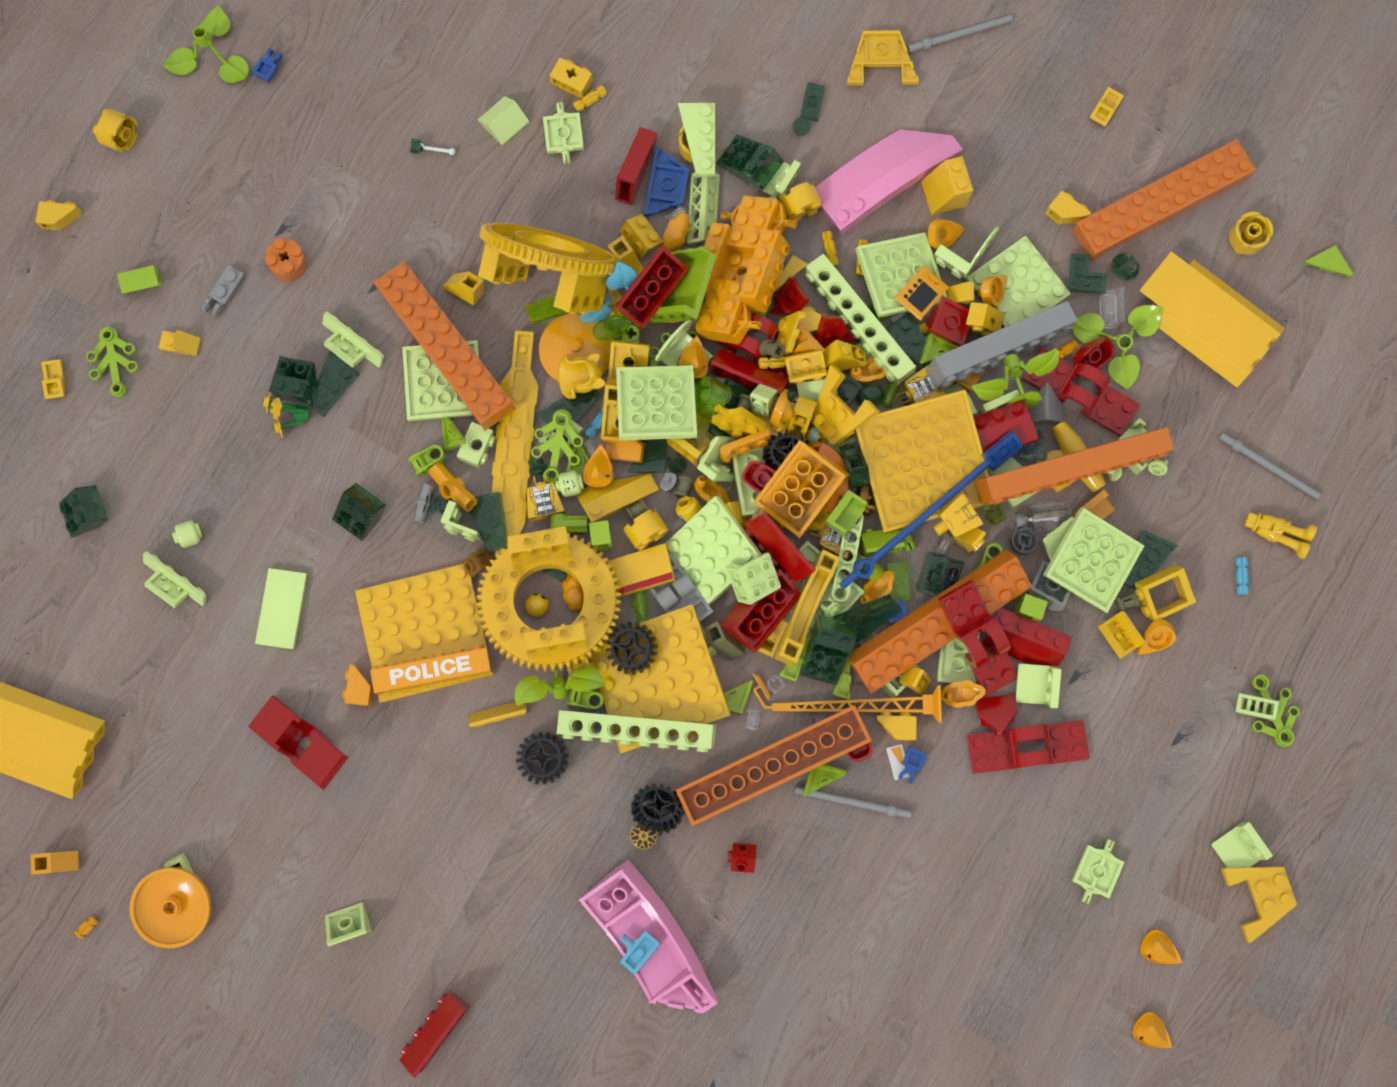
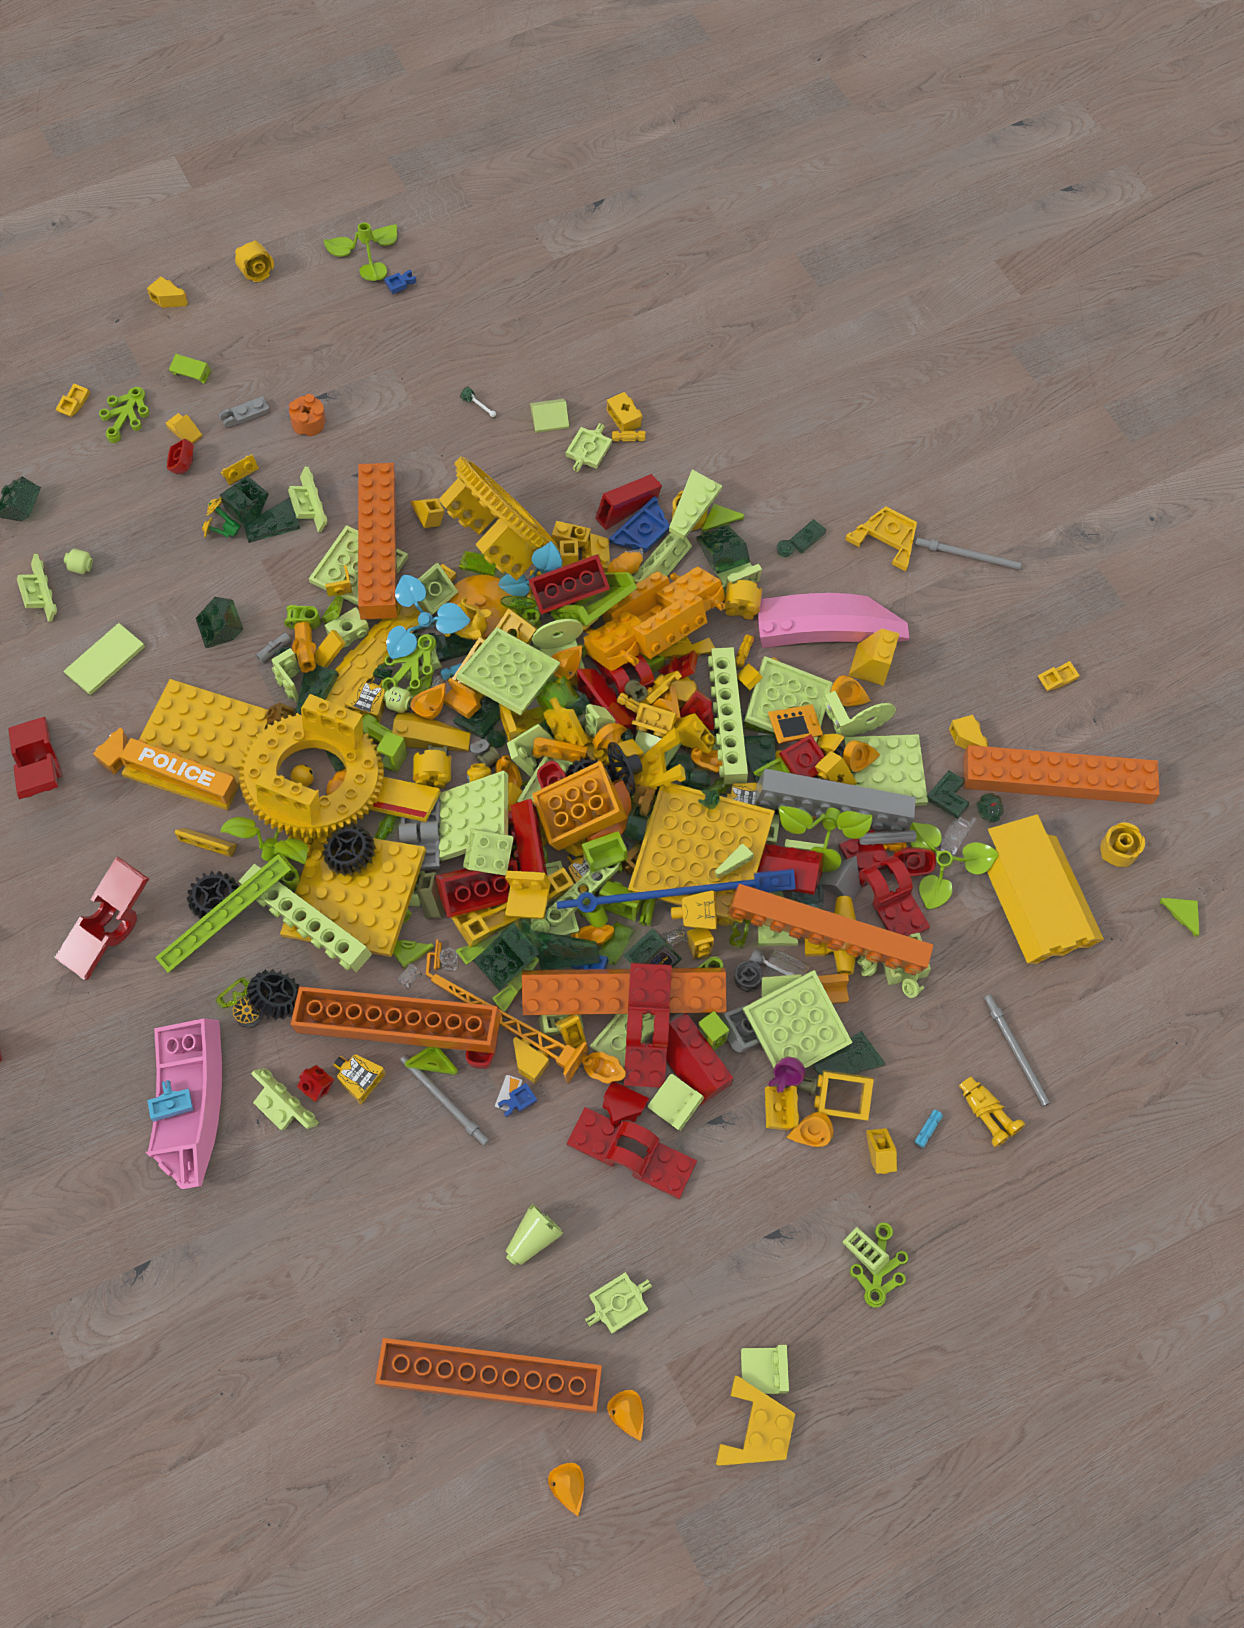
camera: 30 degrees right, 15 degrees down
(200, 373) = (180, 456): none -> red piece
(265, 343) = (240, 469): none -> yellow hinge
(445, 413) = (341, 587): none -> yellow bracket
(469, 865) = (87, 938): none -> piece
(476, 475) = (329, 649): none -> yellow tile
(516, 382) = (449, 620): none -> medium azure plant
(529, 362) = (438, 588): none -> yellowish green slope
(567, 769) = (223, 913): none -> lime plate
(608, 232) = (566, 531): none -> yellow slope
(622, 813) = (219, 1000): none -> clear neon green helmet
(725, 130) = (721, 516): none -> lime tile
(725, 892) = (279, 1103): none -> yellowish green bracket
(772, 829) = (358, 1076): none -> torso
(812, 595) = (527, 894): none -> yellow bracket
(818, 424) = (630, 764): none -> black wheel
(850, 445) = (644, 798): none -> pearl gold bracket
(854, 272) = (749, 676): none -> yellow slope
(909, 413) = (711, 800): none -> clear green plate
(962, 452) = (735, 860): none -> yellowish green slope
(999, 864) = (532, 1236): none -> yellowish green cone
(1041, 993) = (489, 1375): none -> orange brick
(1069, 341) = (888, 837): none -> light grey axle
(1111, 604) = (787, 1072): none -> magenta piece
(1219, 618) = (882, 1151): none -> yellow slope

